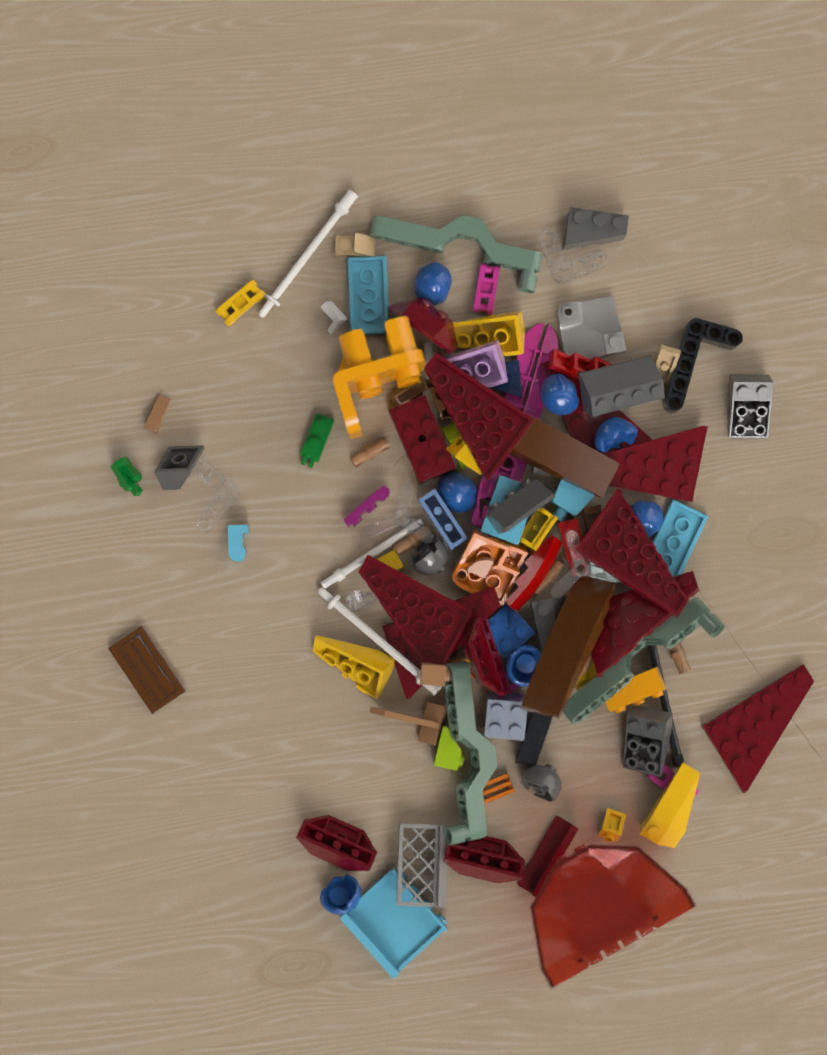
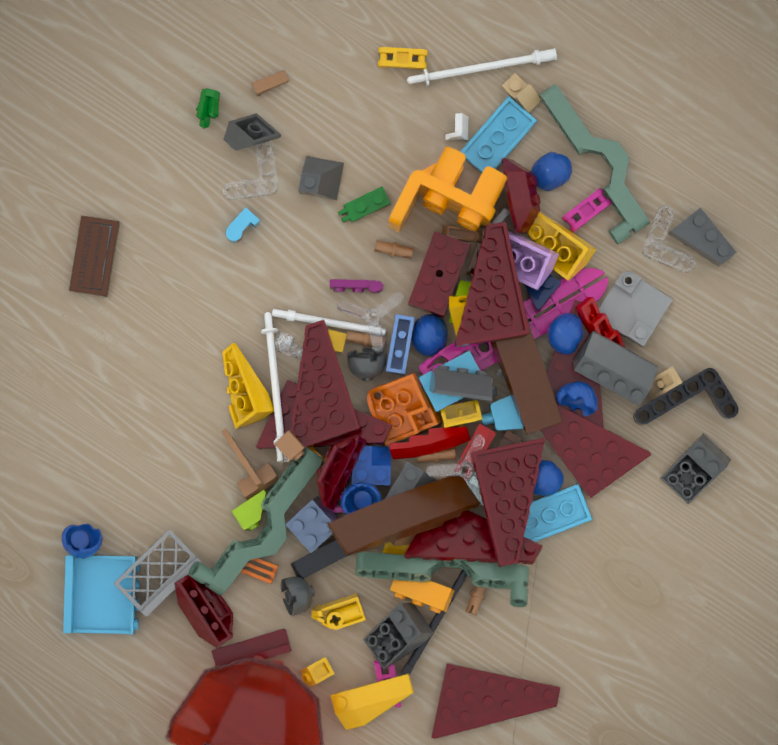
camera: 45 degrees right, 0 degrees up
(264, 450) = (321, 178): none -> dark grey slope
(337, 843) = (113, 501): dark red wedge -> none
(480, 567) = (394, 402): tile -> none
(589, 757) = (346, 609): none -> yellow piece

